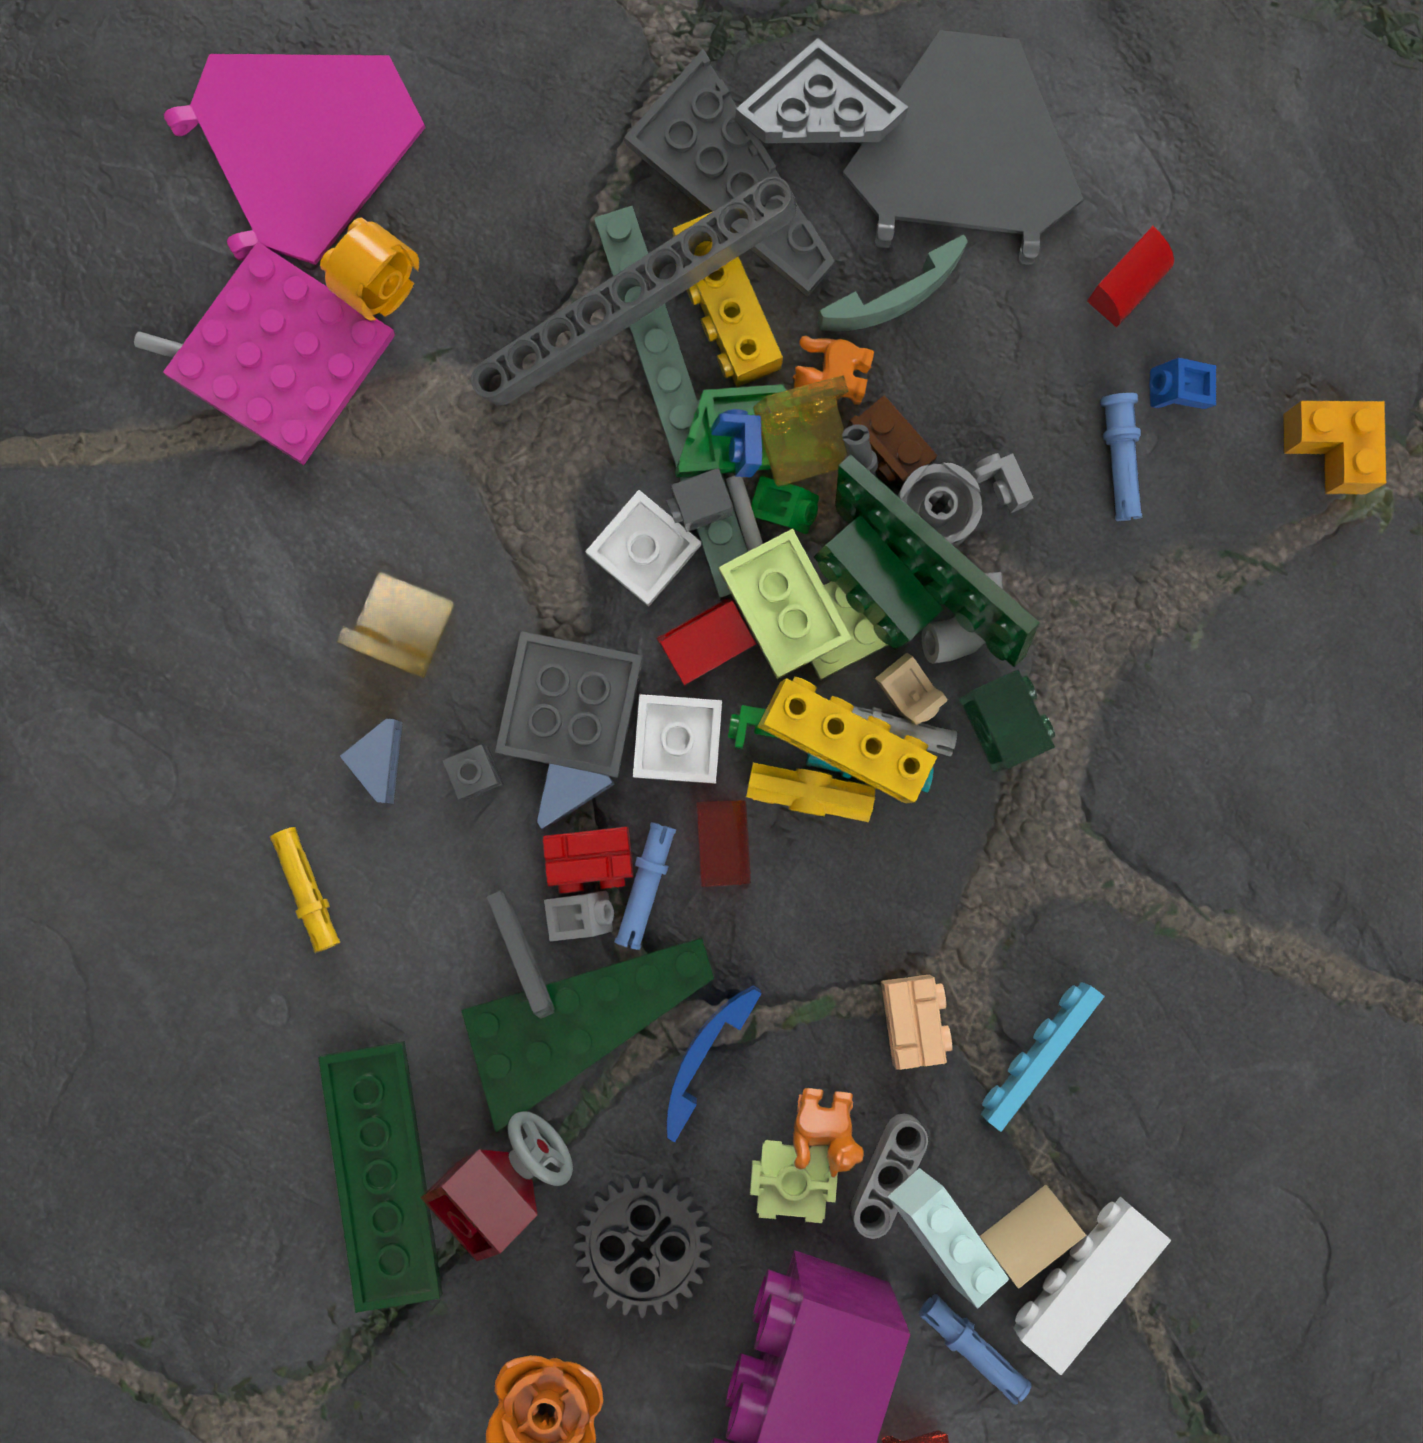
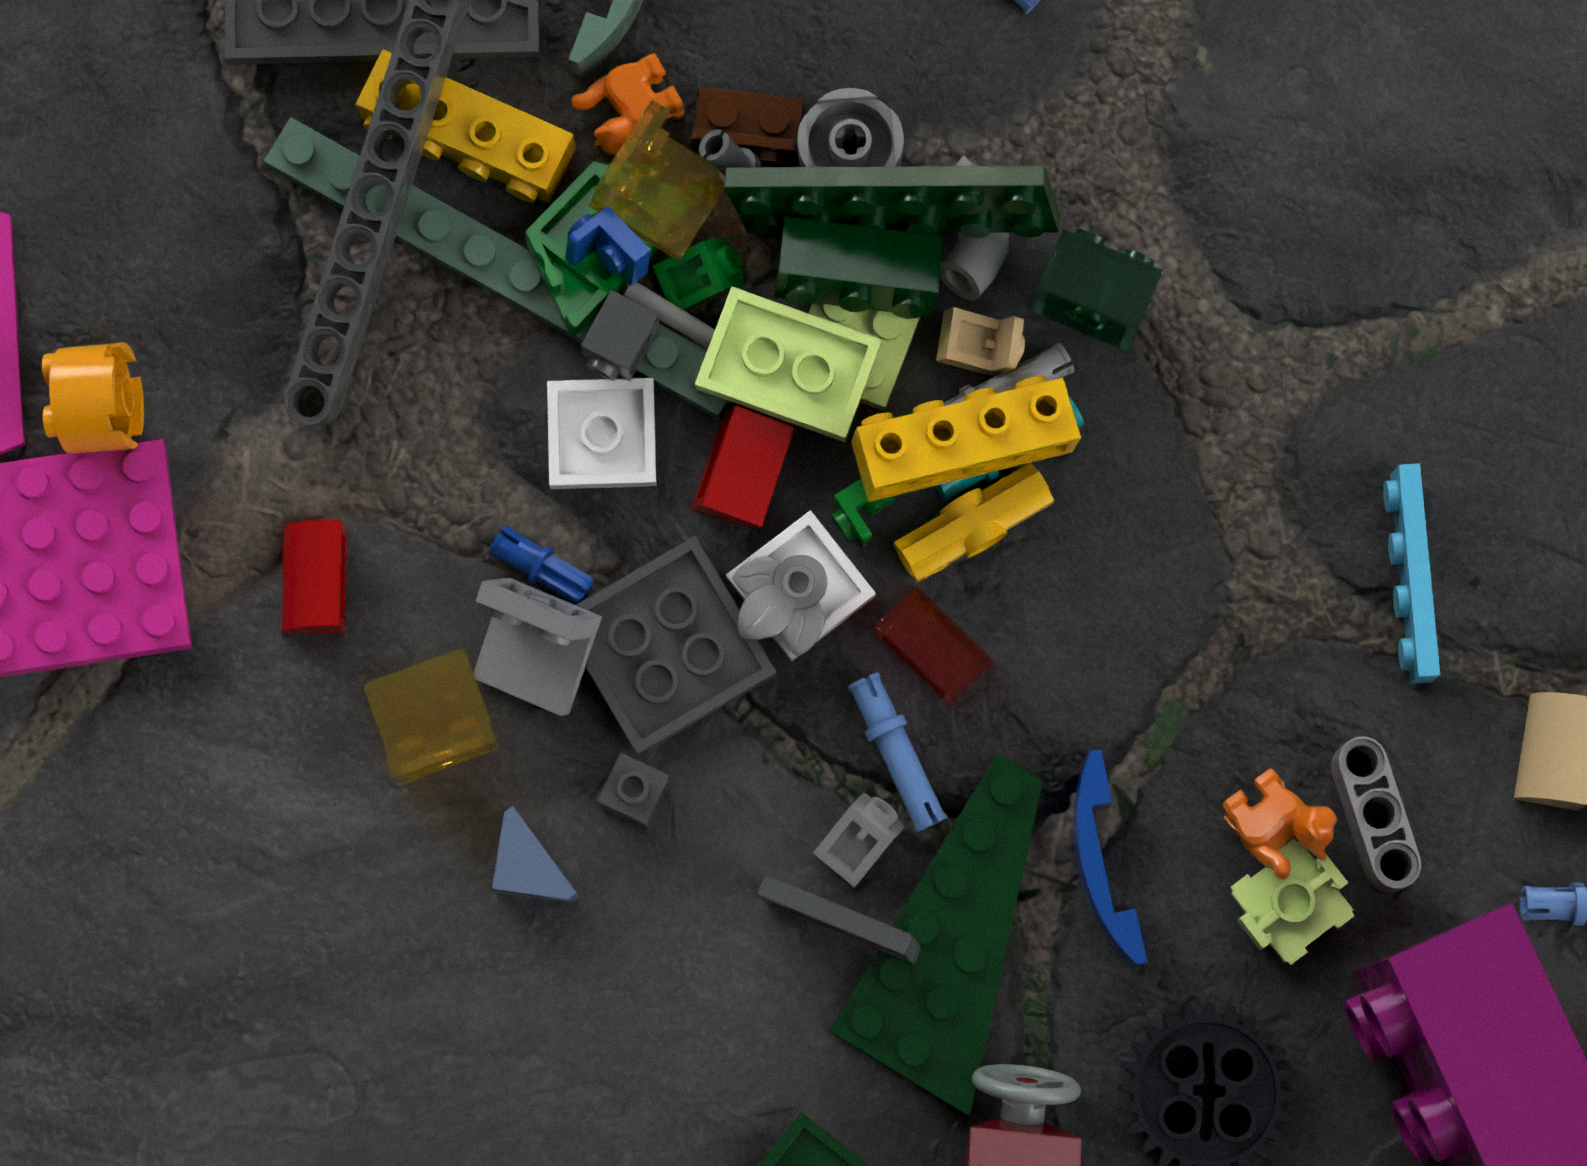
camera: 45 degrees left, 5 degrees down
(308, 898) = (579, 1057): yellow pin -> none
(407, 486) = (314, 577): none -> red brick
(493, 635) = (534, 644): none -> light grey bracket
(540, 593) = (541, 565): none -> blue axle
(567, 791) = (741, 726): sand blue slope -> none
(588, 858) = (819, 773): red brick -> none
(650, 742) = (776, 606): none -> light grey plate
(915, 1021) = (1269, 648): light nougat brick -> none
(948, 1237) = (1481, 815): light aqua brick -> none
(1010, 482) = (896, 65): light grey bracket -> none

